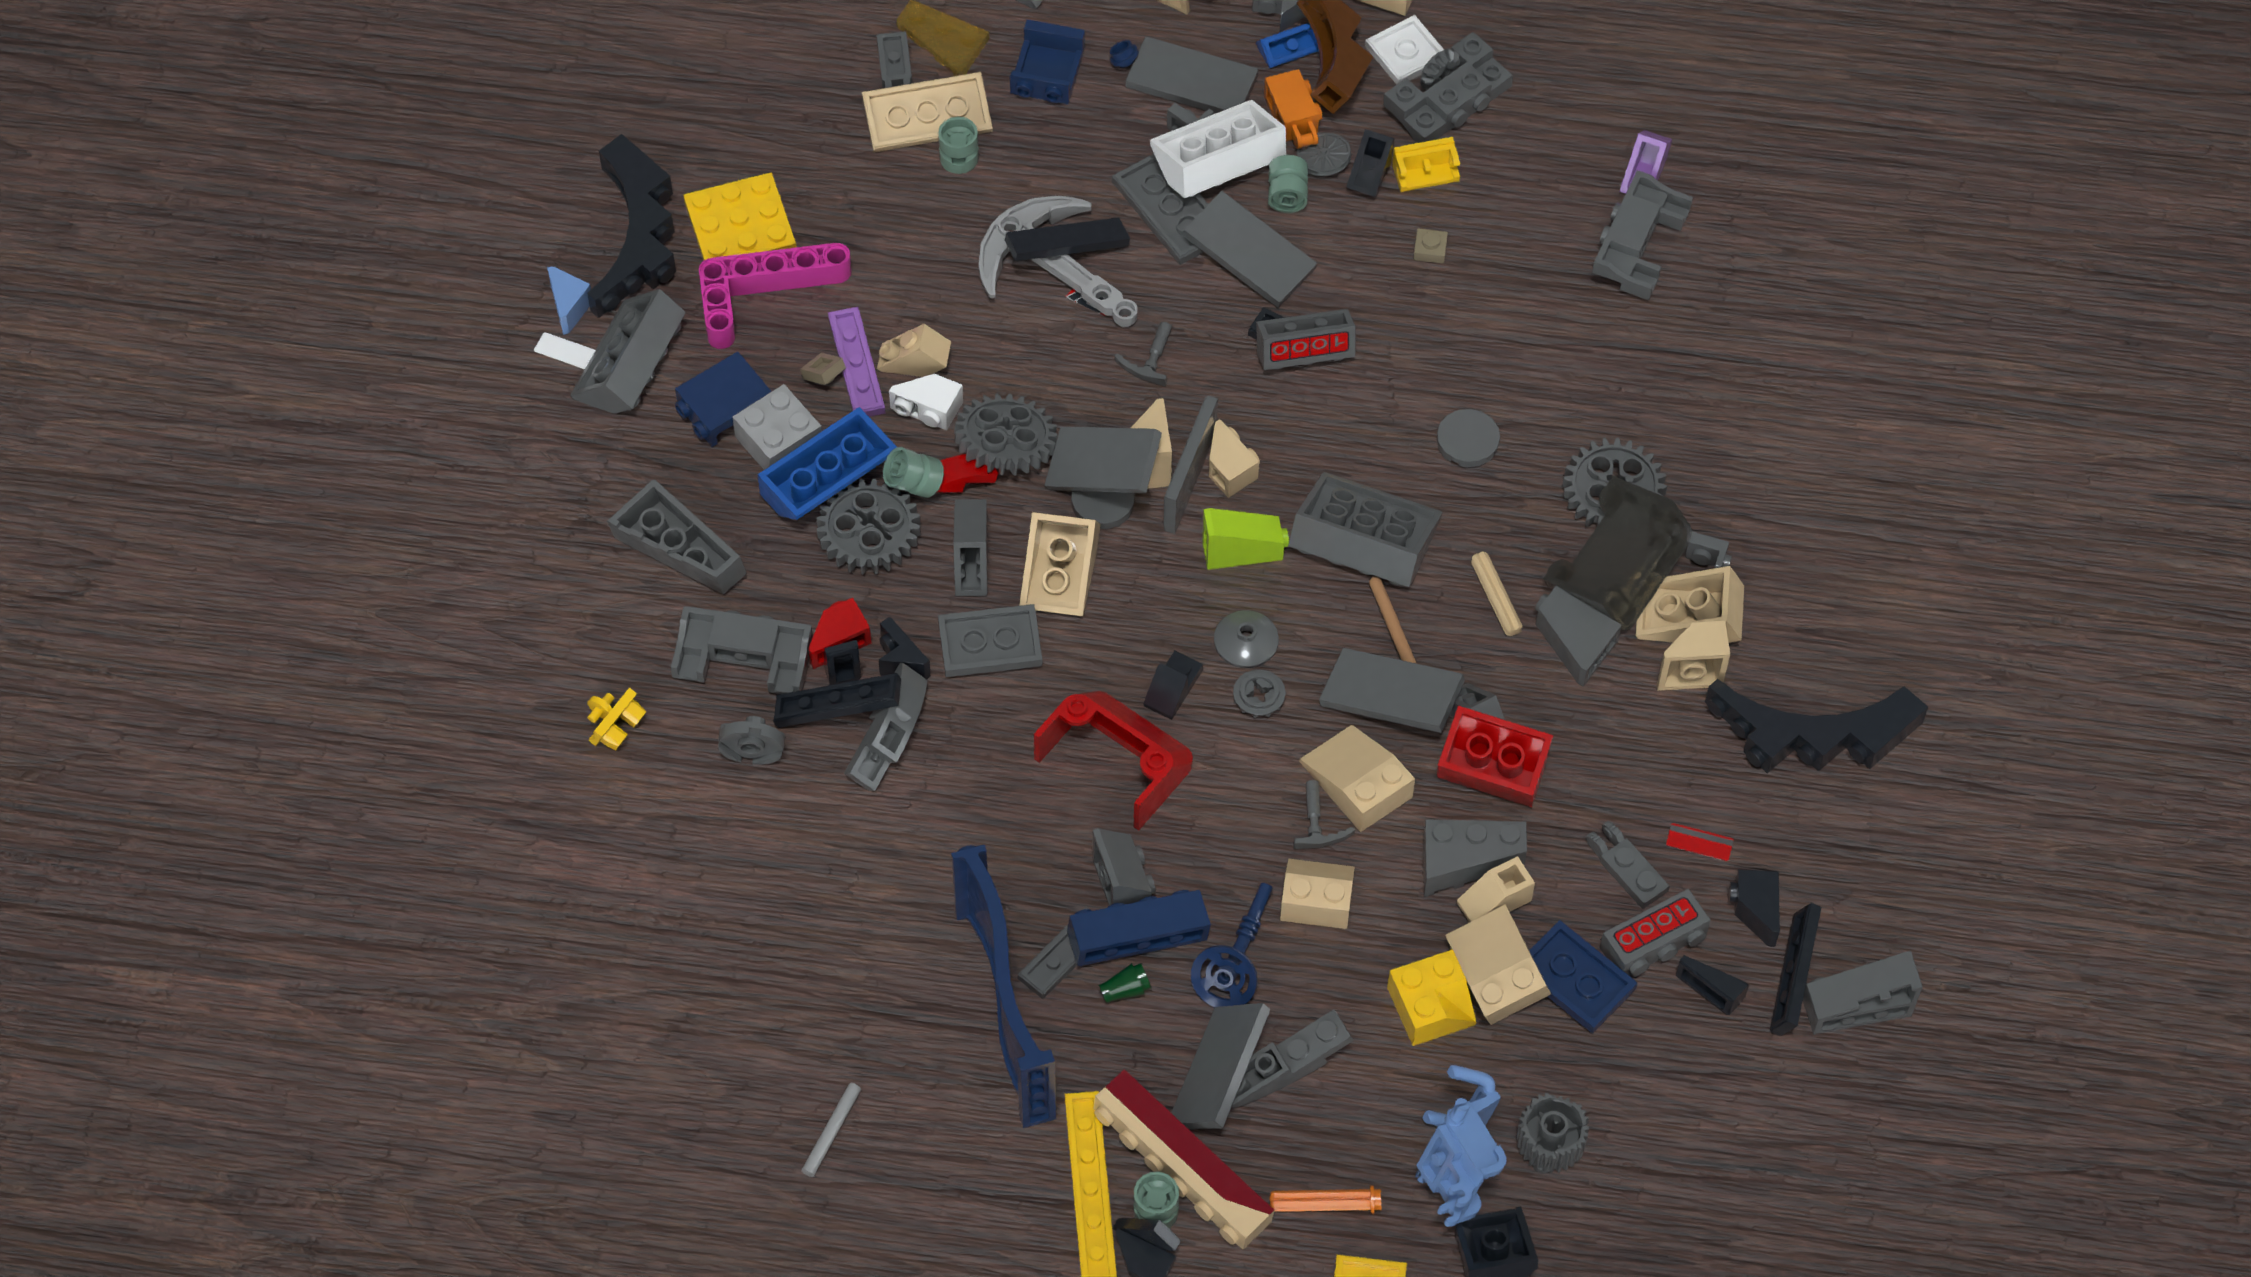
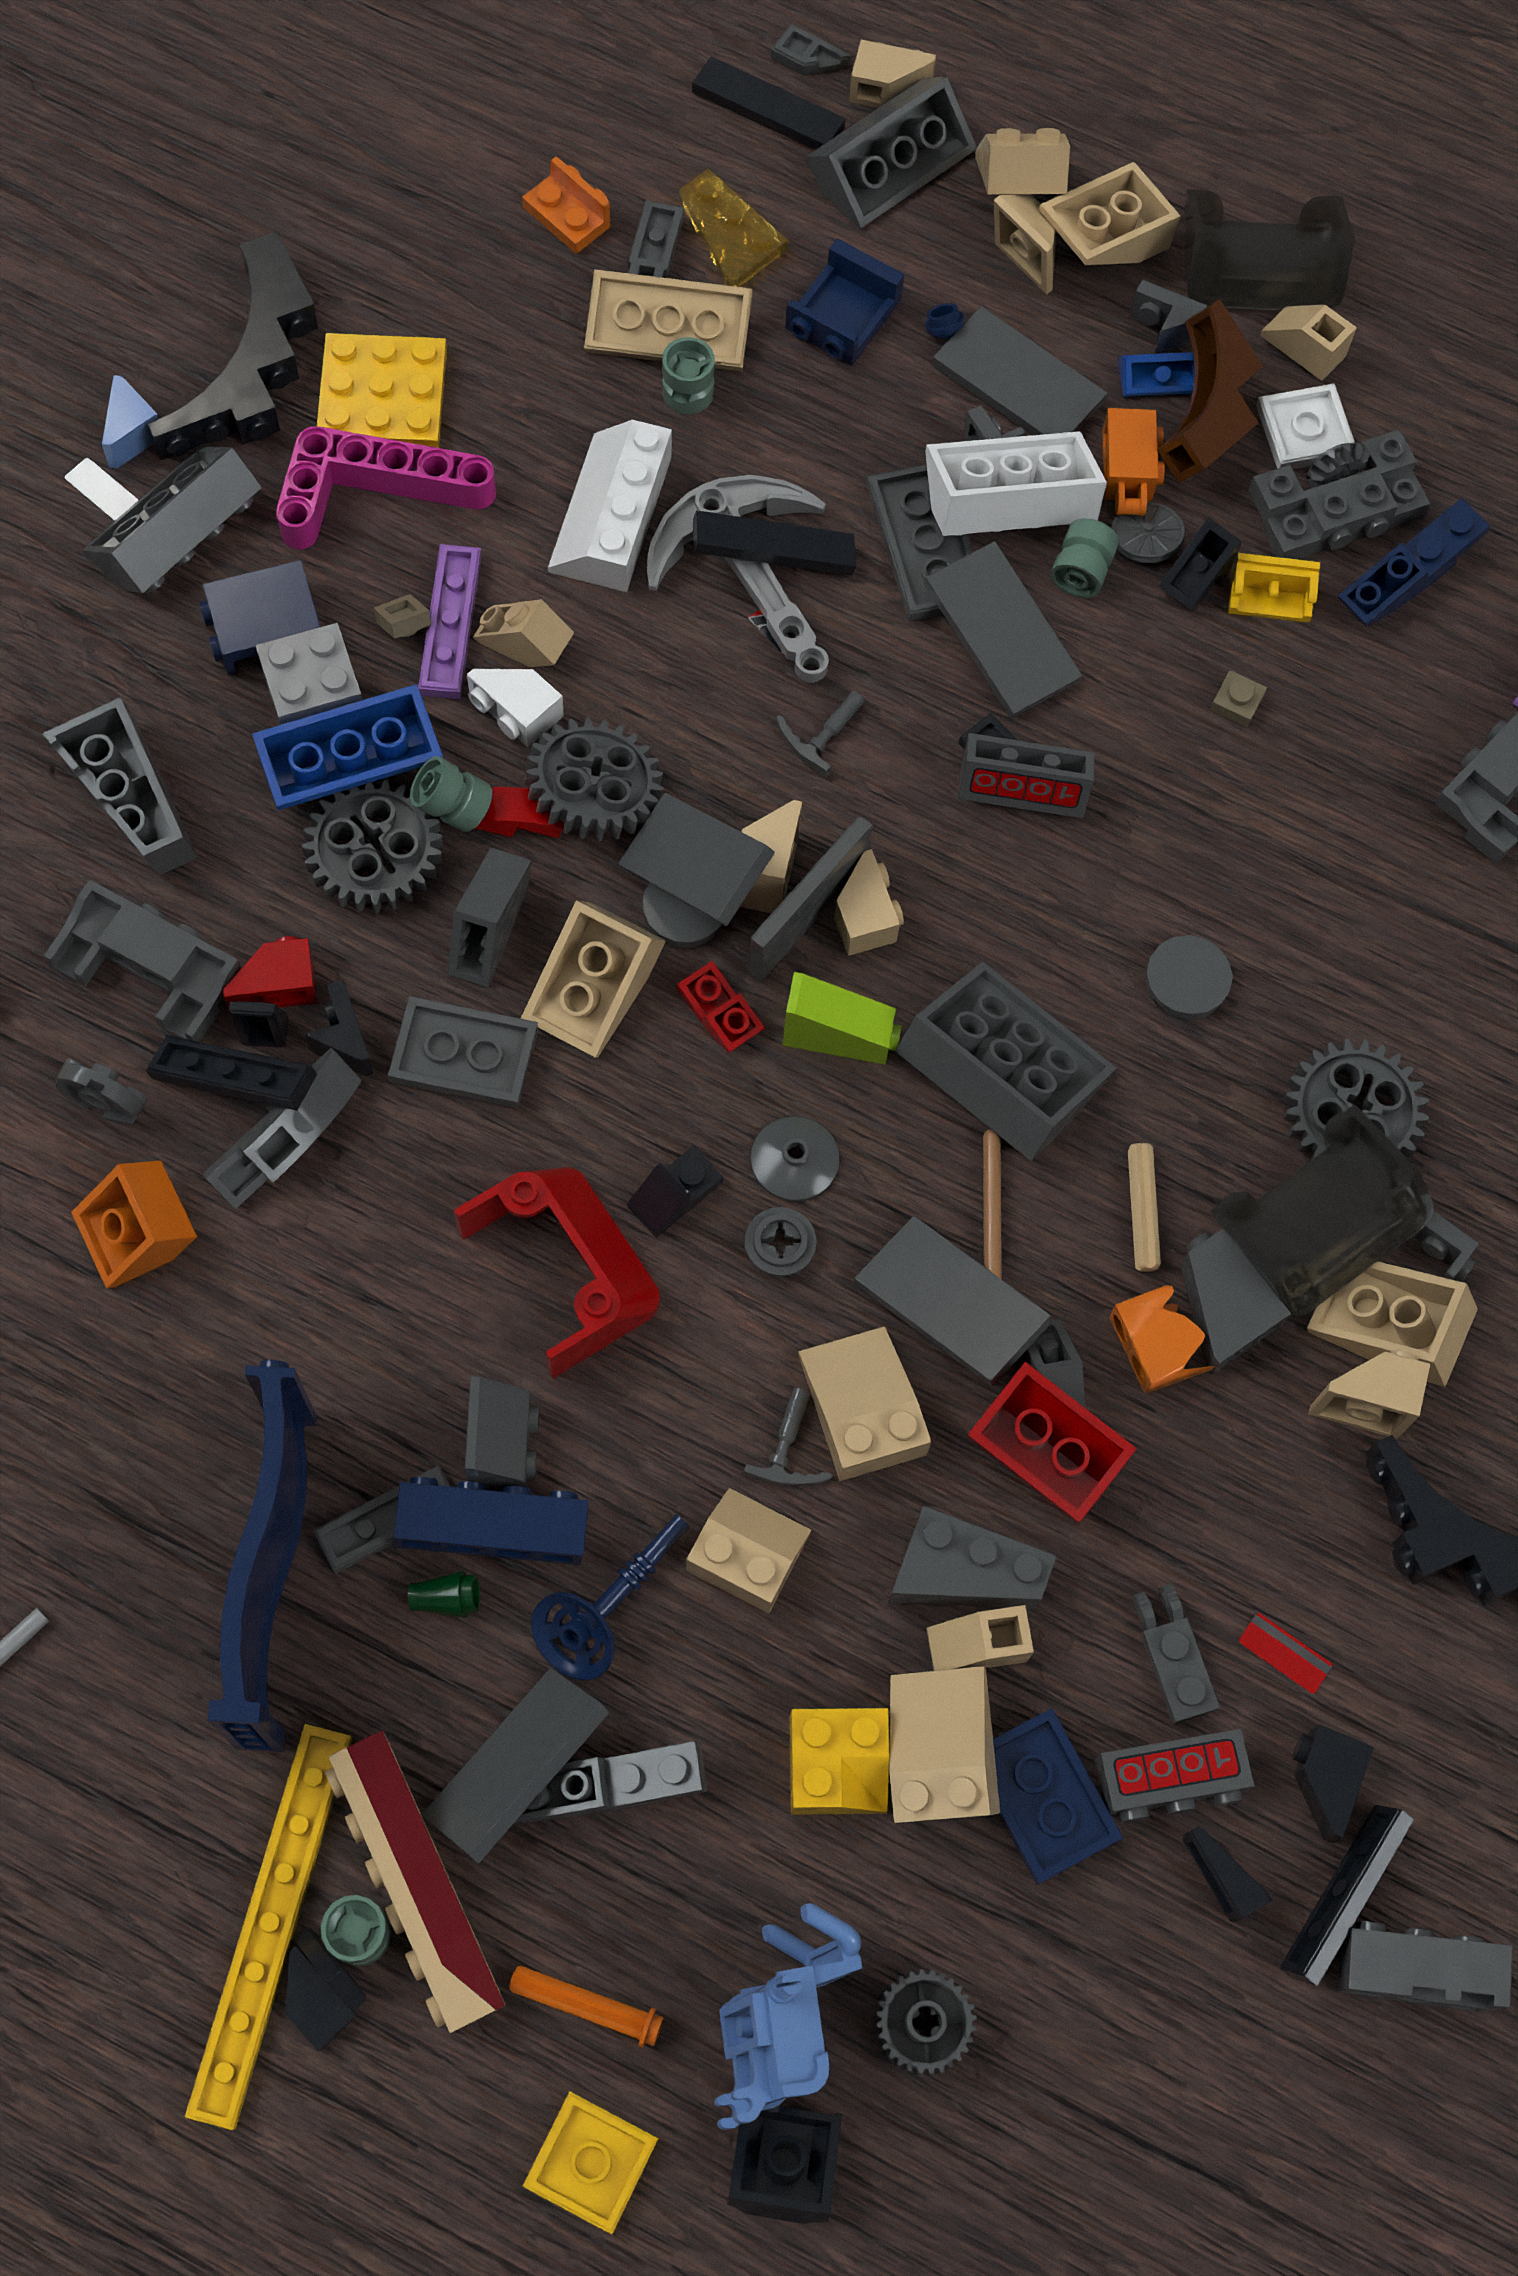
camera: 15 degrees right, 10 degrees up
(808, 820) = (133, 1222): none -> orange slope
(821, 55) = (569, 206): none -> orange bracket
(939, 248) = (613, 504): none -> white slope
(1154, 559) = (719, 1008): none -> red slope
(1518, 119) = (1415, 565): none -> dark blue slope
(1538, 672) = (1157, 1339): none -> orange piece

